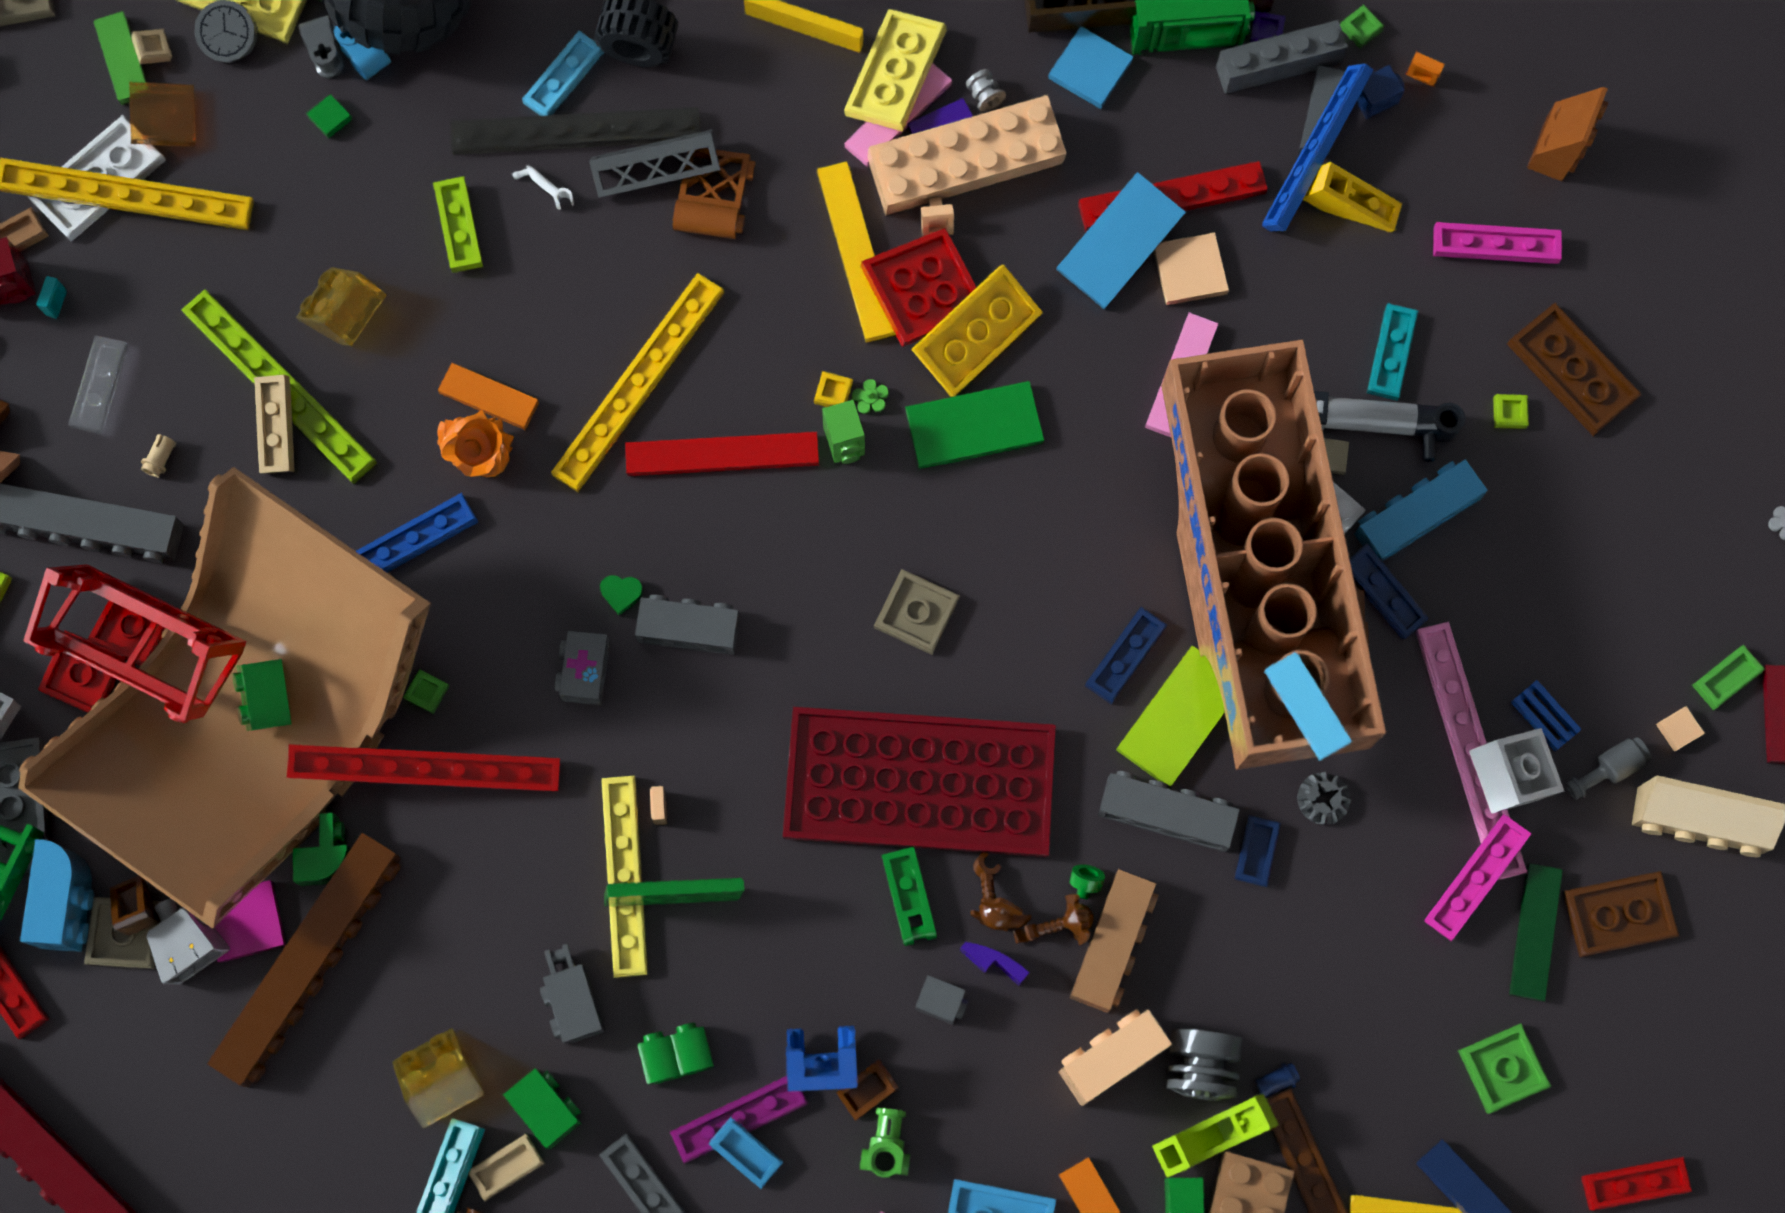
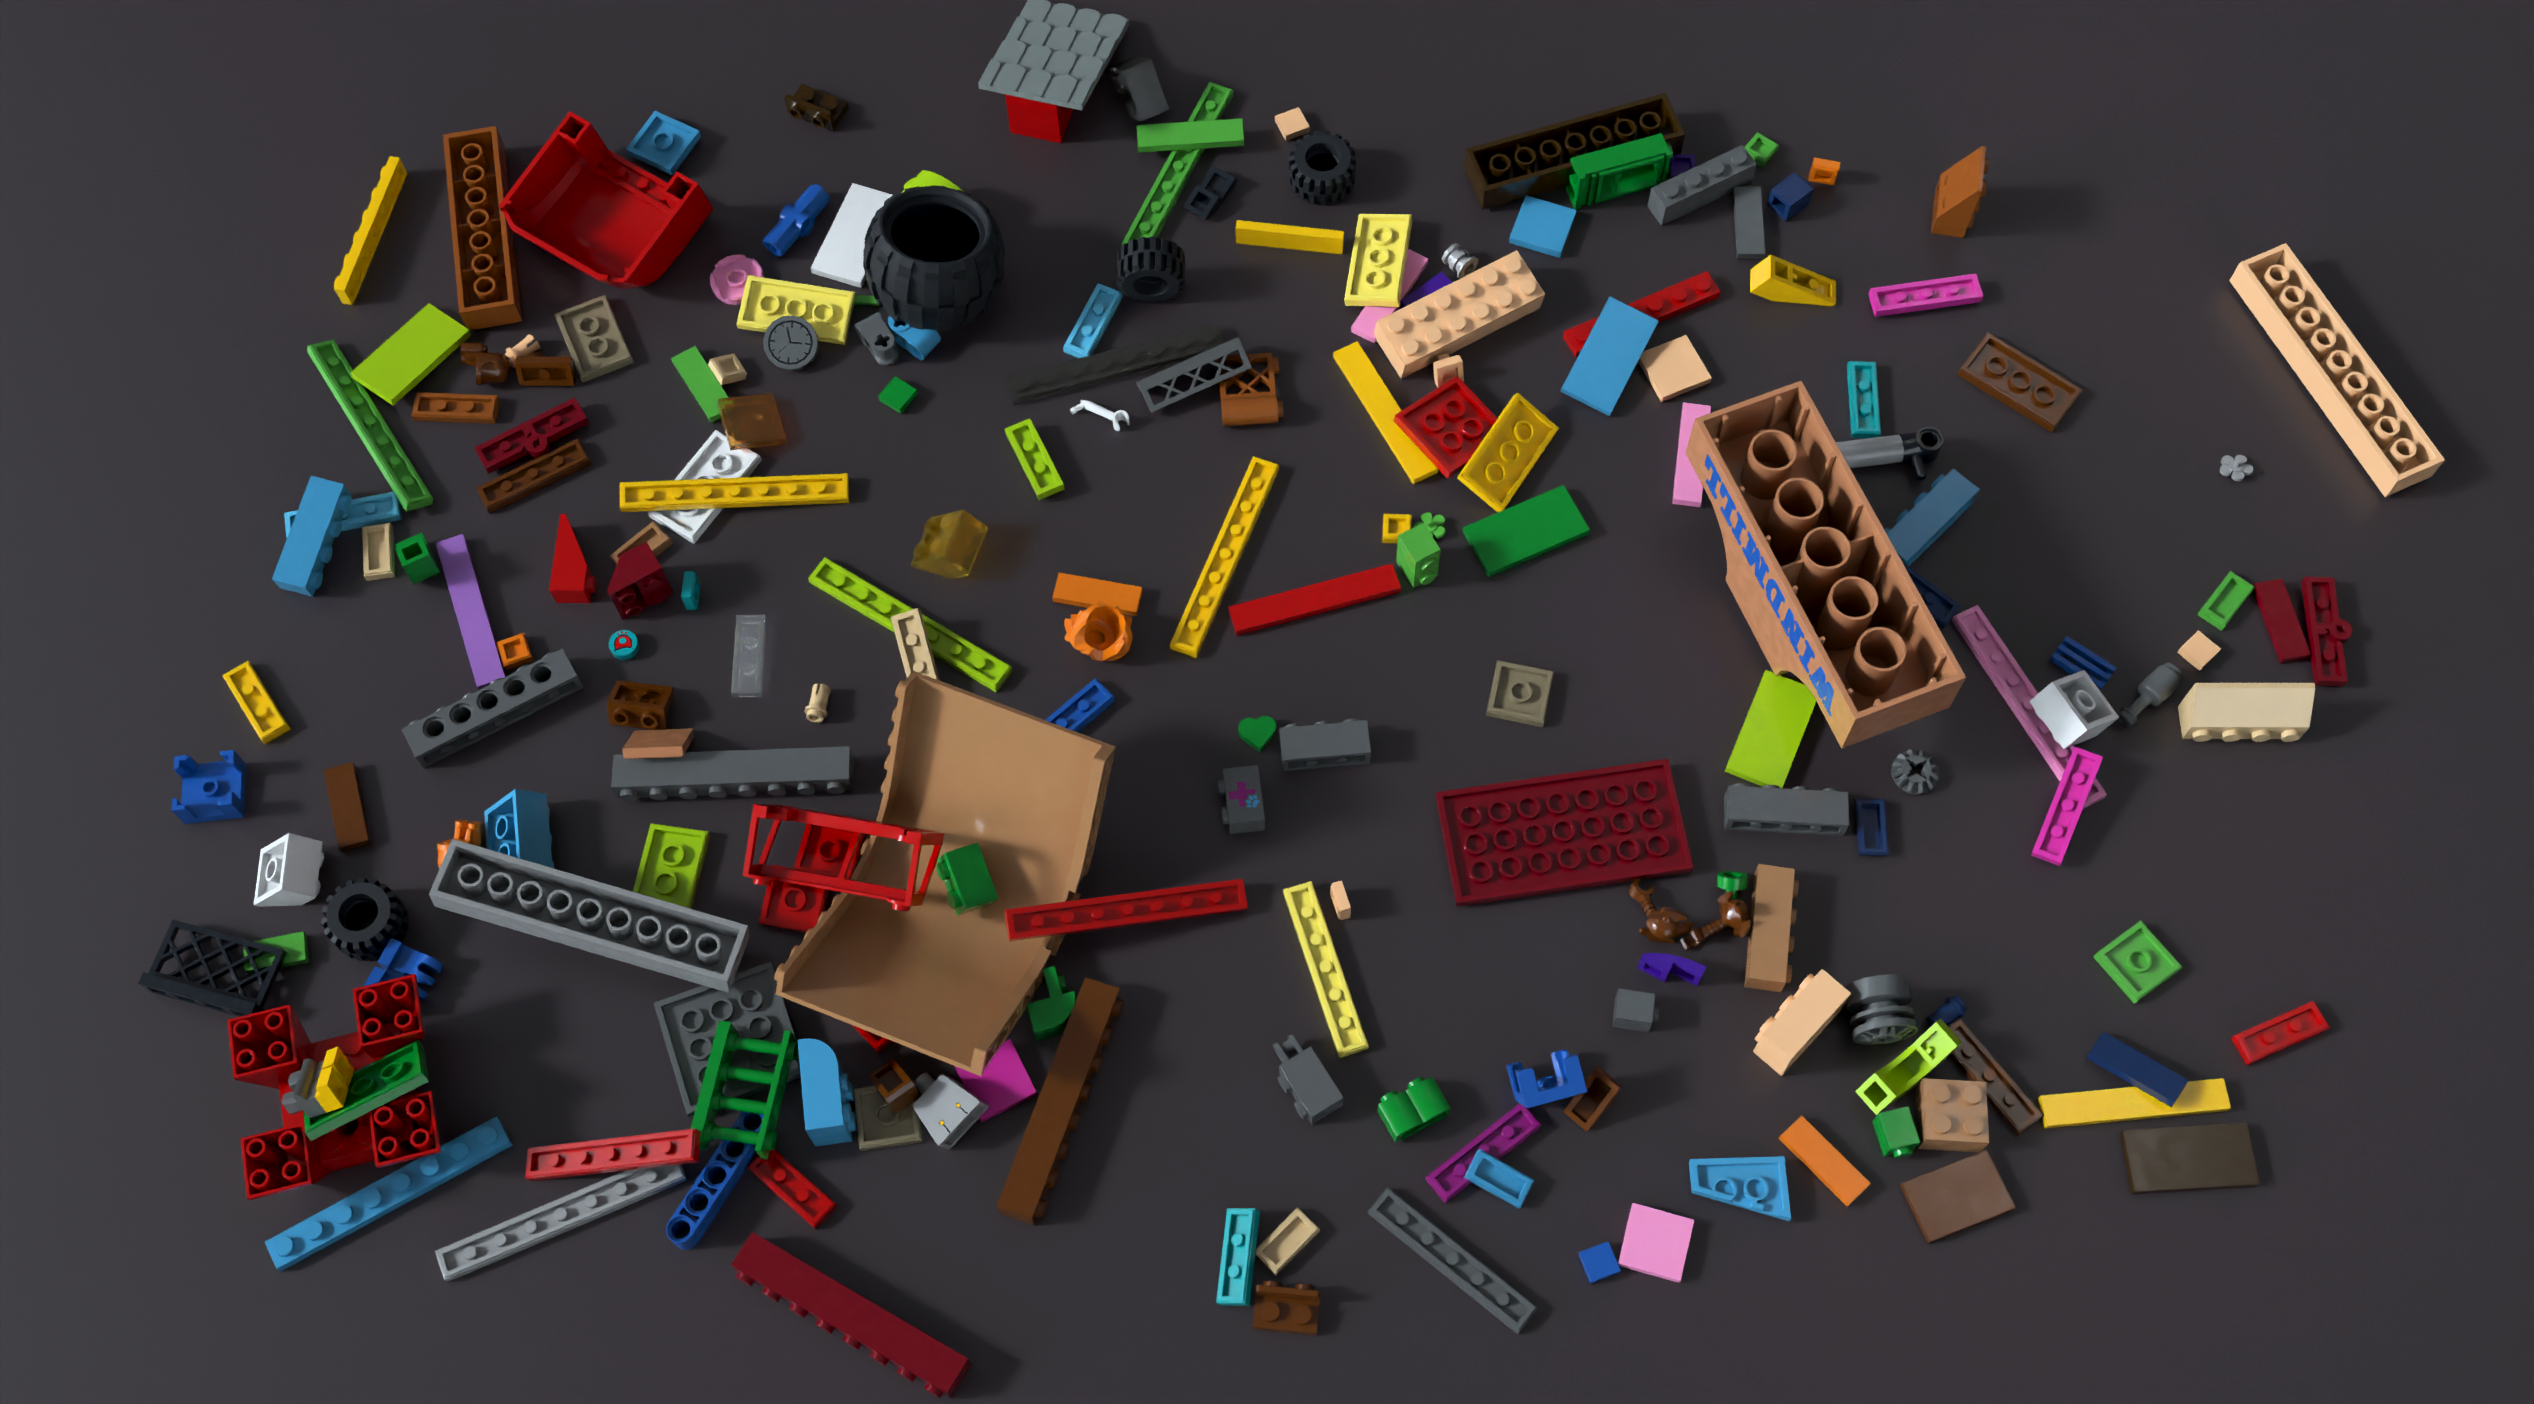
camera: 10 degrees left, 10 degrees down
(426, 691) = (1108, 851): bright green tile -> none
(437, 1078) = (1206, 1175): clear yellow slope -> none
(543, 1107) = (1308, 1180): green brick -> none
(673, 892) = (1376, 965): green tile -> none
(887, 1143) = (1622, 1142): bright green connector -> none
(908, 895) = (1580, 929): green plate -> none
(1126, 655) = (1710, 691): dark blue tile -> none
(1308, 706) = (1895, 668): medium azure tile -> none
(1317, 147) = (1753, 249): blue tile -> none
(1510, 411) = (1977, 426): lime tile -> none
(1535, 932) = (2129, 843): dark green tile -> none
(1620, 914) = (2196, 812): reddish brown tile -> none

